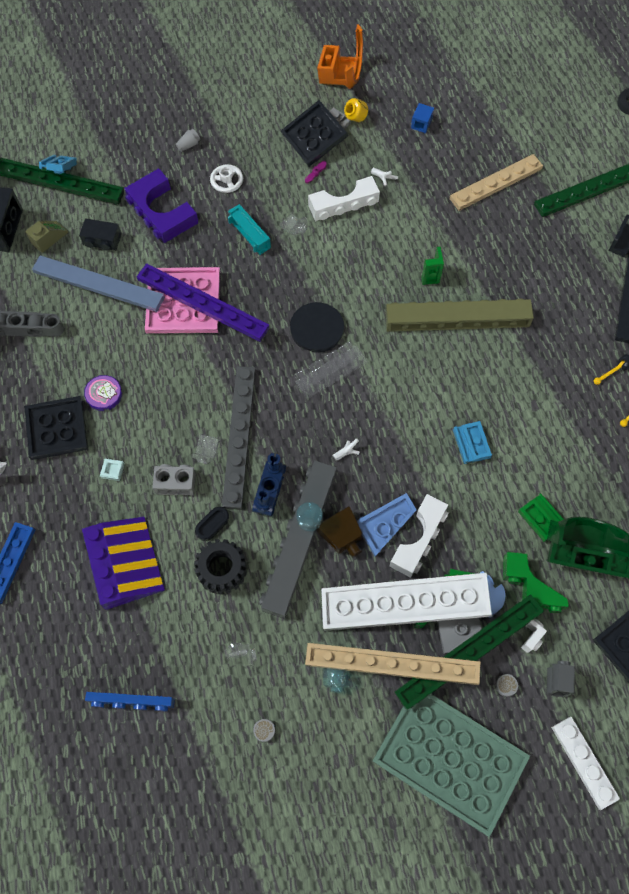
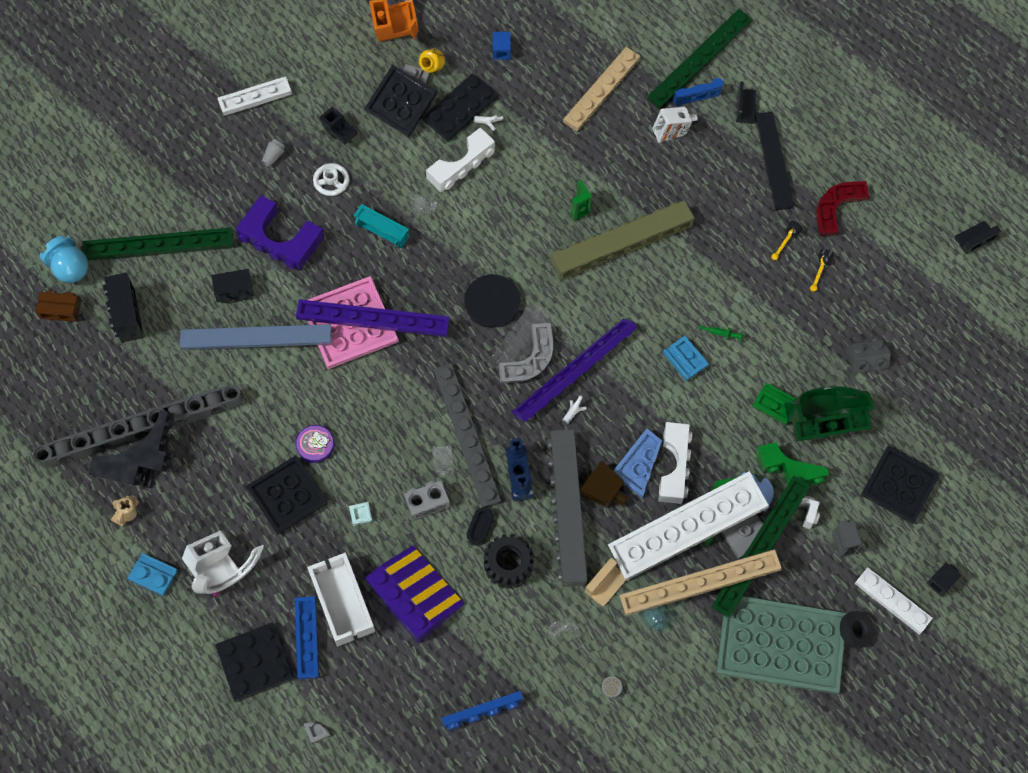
camera: 25 degrees left, 0 degrees up
(45, 234) = (175, 306): olive slope -> none
(52, 540) = (341, 599): none -> white piece
(59, 164) = (151, 226): dark azure plate -> none
(195, 92) = (254, 96): none -> white plate
(250, 136) = (336, 126): none -> black brick
(303, 624) = (605, 583): none -> tan panel
(309, 516) = (572, 483): clear light blue head -> none
(315, 172) = (418, 140): magenta piece -> none
(330, 394) = (536, 362): none -> light grey plate
(363, 157) = (460, 107): none -> black plate
(368, 412) = (574, 369): none -> dark purple plate
(506, 685) = (803, 563): light grey tile -> none
(517, 431) = (722, 332): none -> green piece
(522, 777) = (847, 632): none -> black tyre
(548, 230) = (673, 123): none -> white torso
(583, 212) = (698, 93): none -> blue plate

